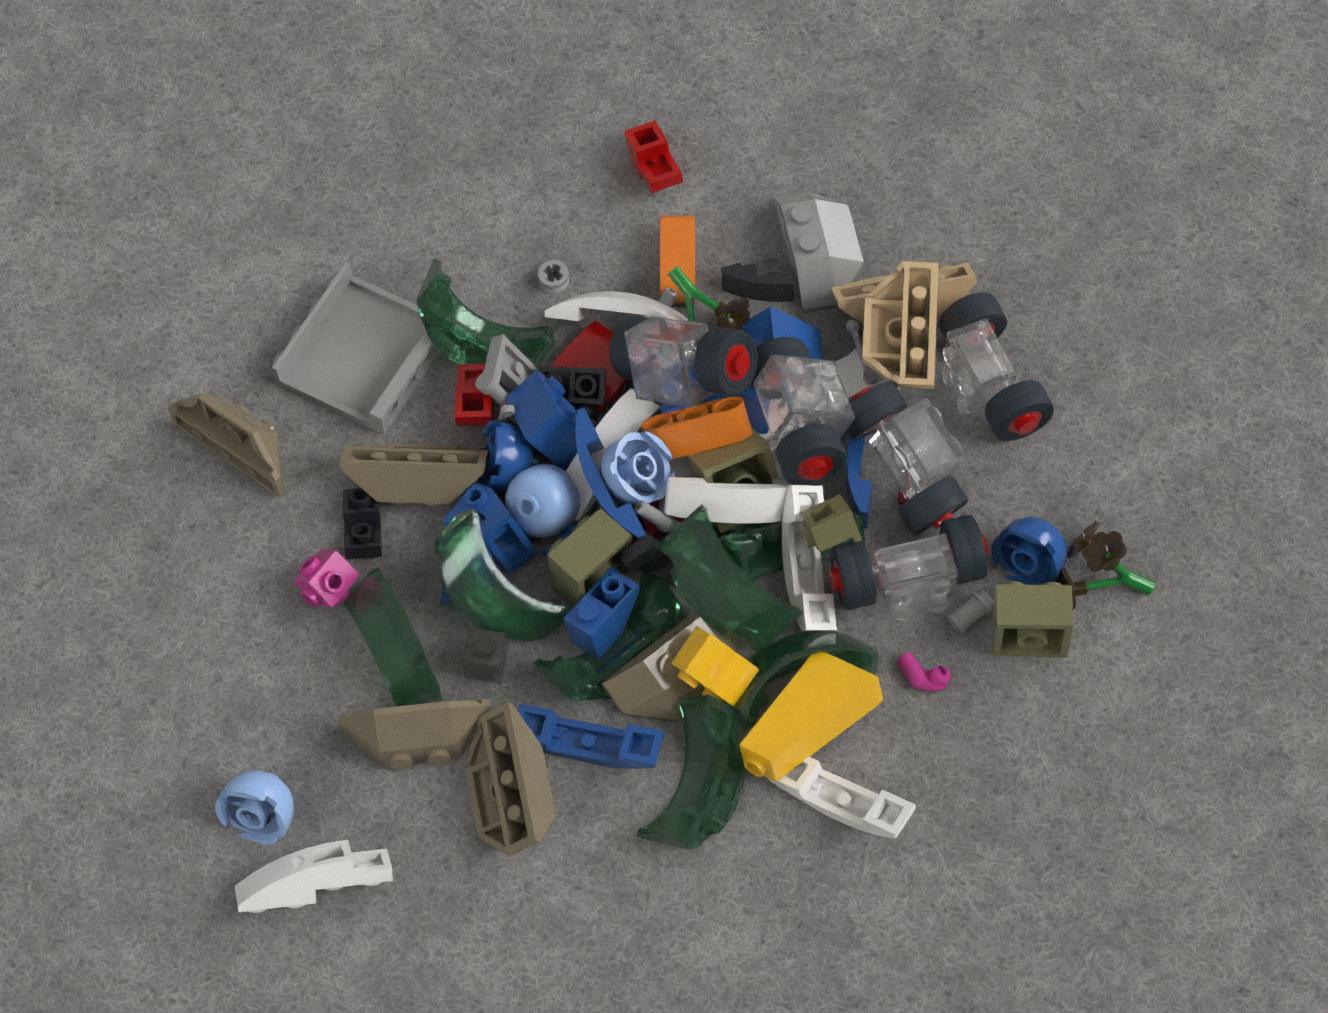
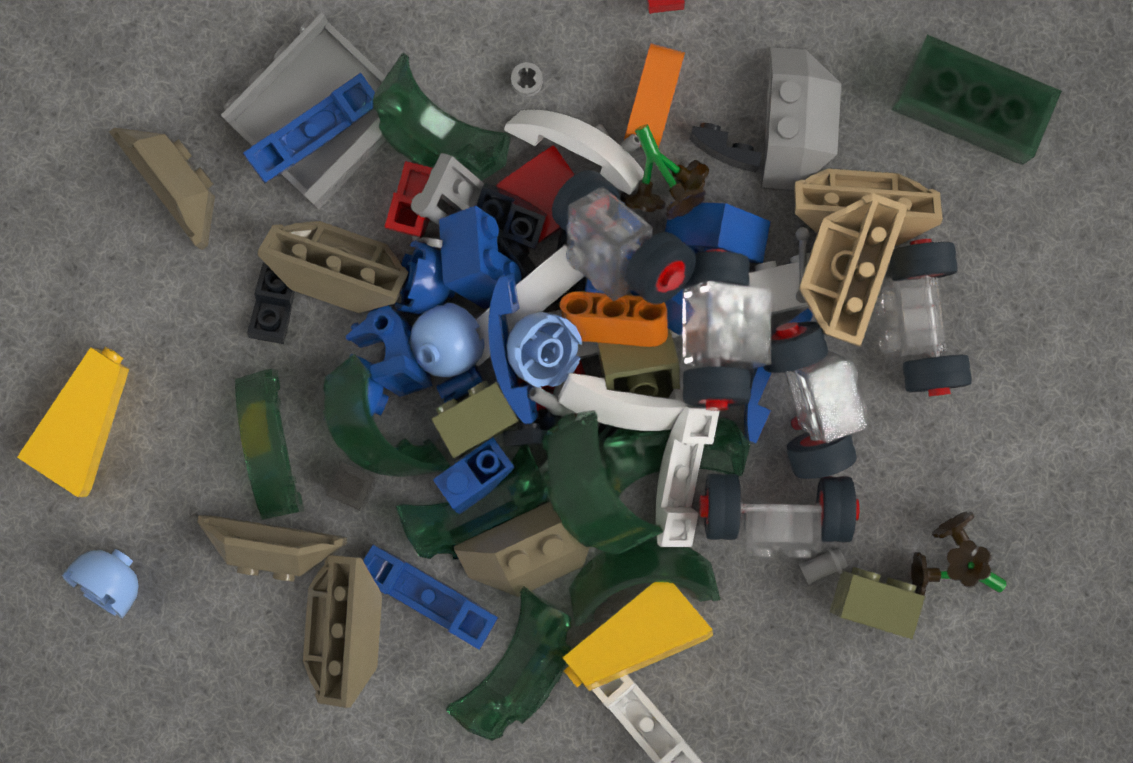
camera: 10 degrees right, 25 degrees up
(195, 673) = (78, 423): none -> yellow slope
(297, 876) = (138, 663): white slope -> none
(325, 579) = (220, 362): dark pink brick -> none
(365, 360) = (311, 129): none -> blue slope
(714, 666) = (560, 576): yellow brick -> none
(828, 524) = (712, 458): olive brick -> none
(923, 679) = (757, 619): dark pink arm -> none
(975, 185) = (976, 100): none -> clear green brick
(1029, 545) = (902, 525): blue cylinder -> none

